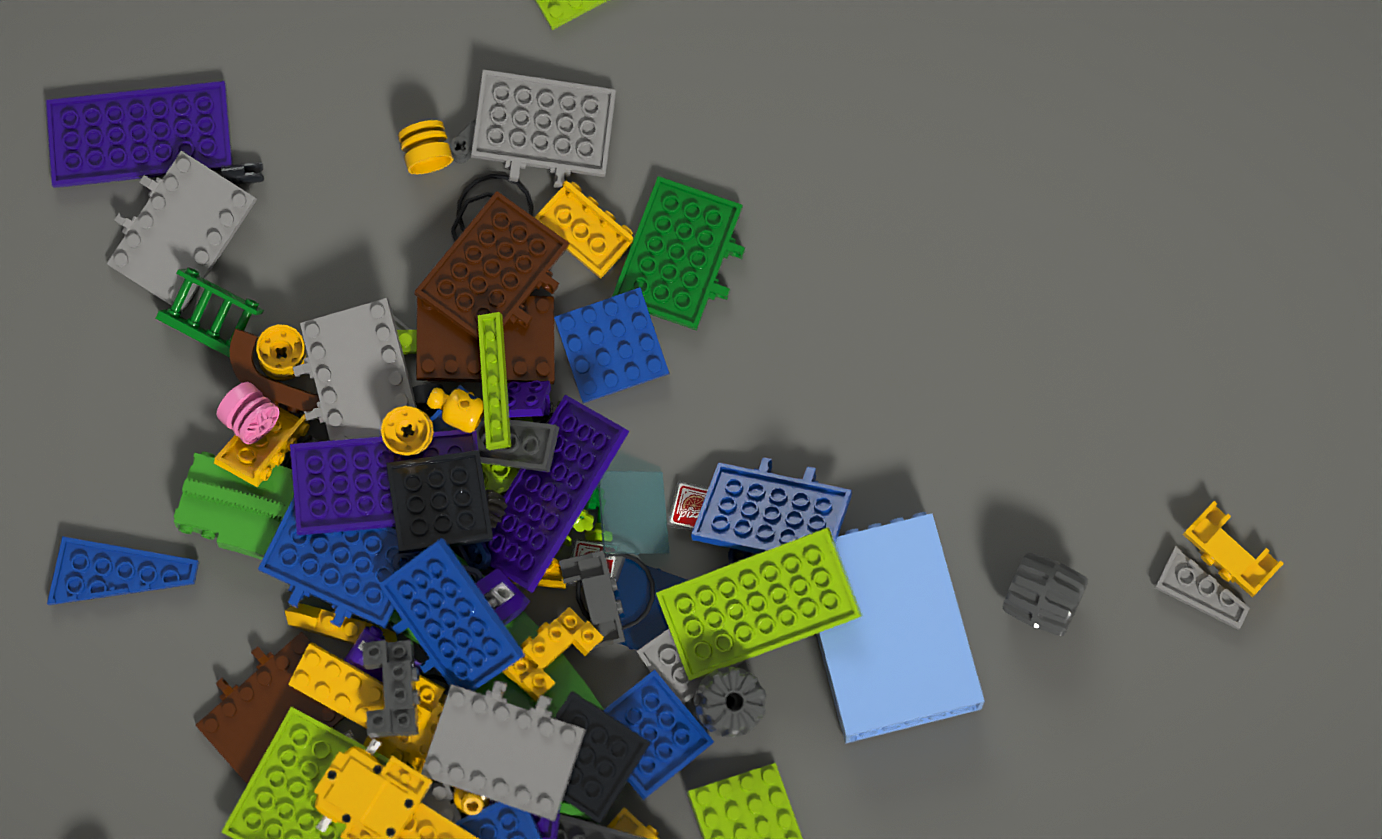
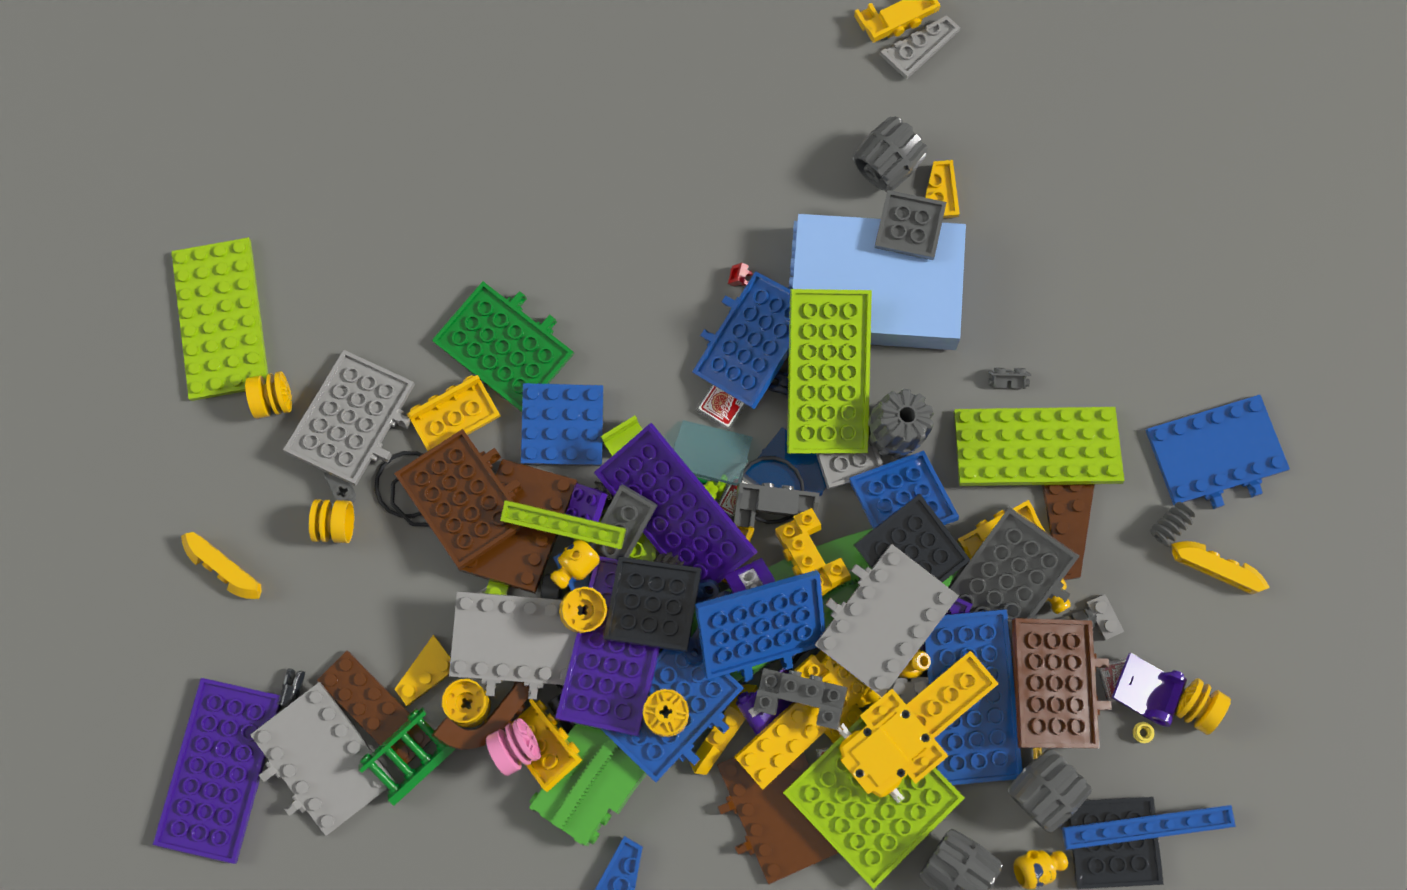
camera: 70 degrees left, 0 degrees up
(252, 257) = (370, 704): none -> reddish brown plate
(301, 300) = (425, 672): none -> yellow wing
(342, 553) = (675, 722): none -> yellow wheel
(348, 46) = (239, 581): none -> yellow brick
(538, 32) = (268, 394): none -> yellow wheel
(621, 413) = (621, 435): none -> lime panel
(837, 821) = (1001, 376): none -> dark grey hinge
(848, 475) = (738, 275): none -> red tile
(958, 638) = (910, 225): none -> dark grey plate
(1026, 670) = (943, 187): none -> yellow wing

